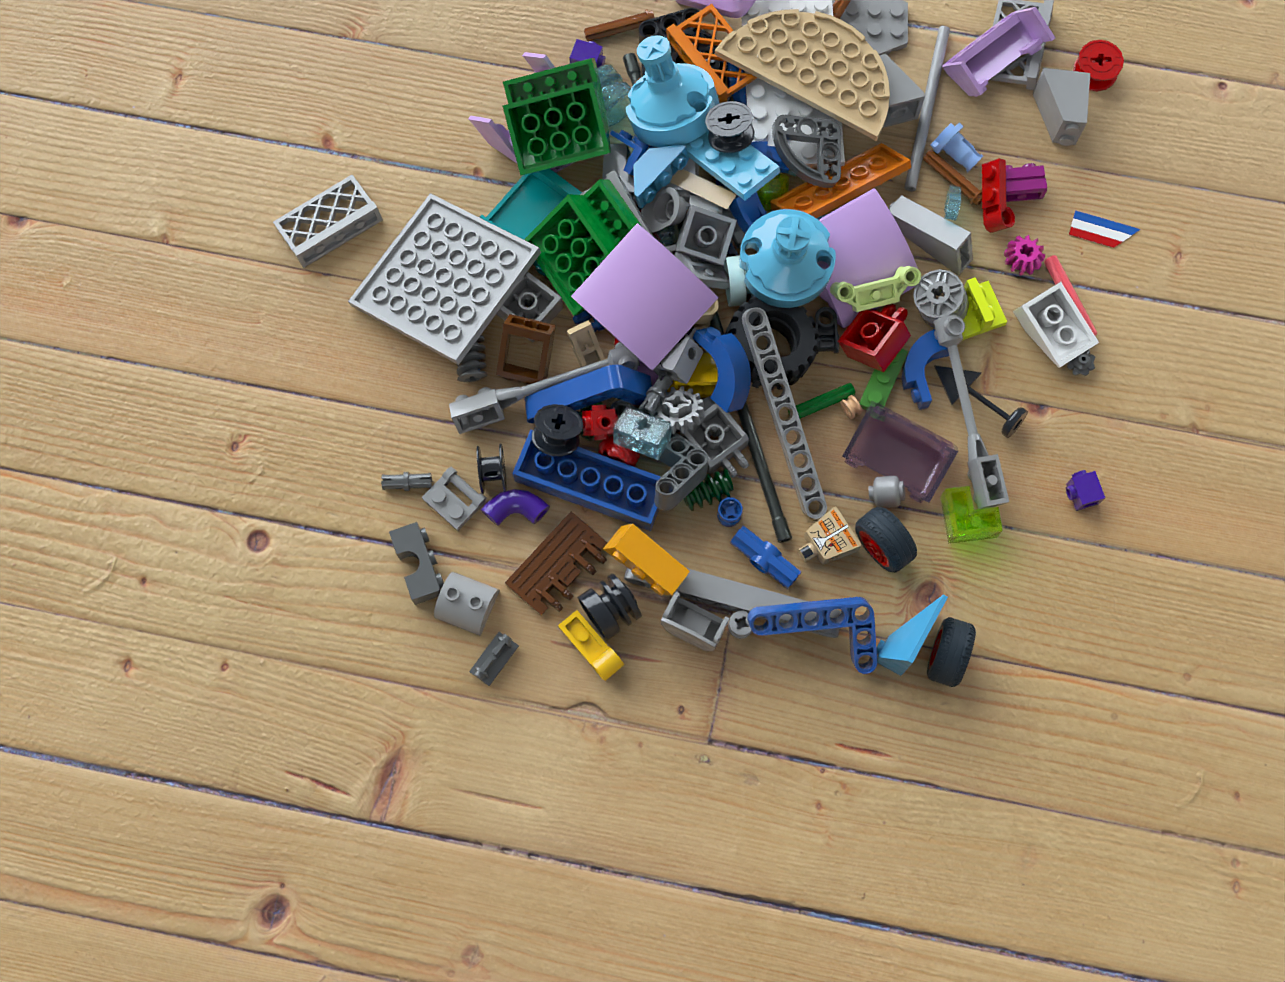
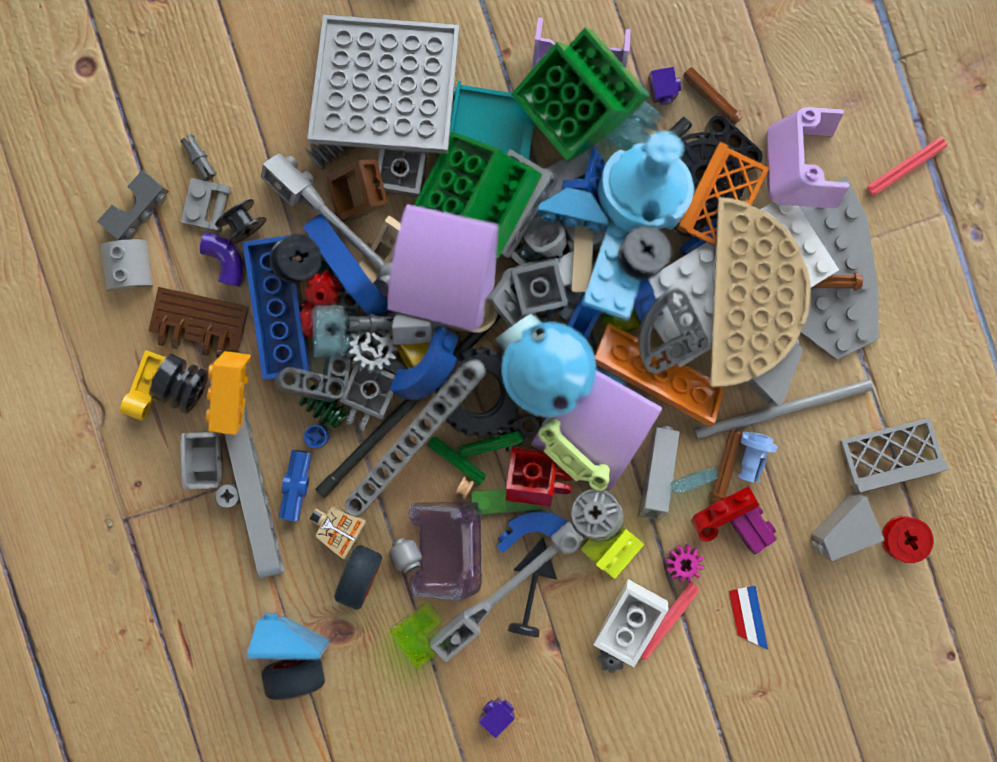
camera: 55 degrees right, 15 degrees up
(494, 658) = (93, 313): dark grey hinge -> none
(823, 621) = (259, 557): blue beam -> none
(824, 359) = (490, 444): none -> green axle
(997, 48) = (868, 441): lavender windscreen -> none

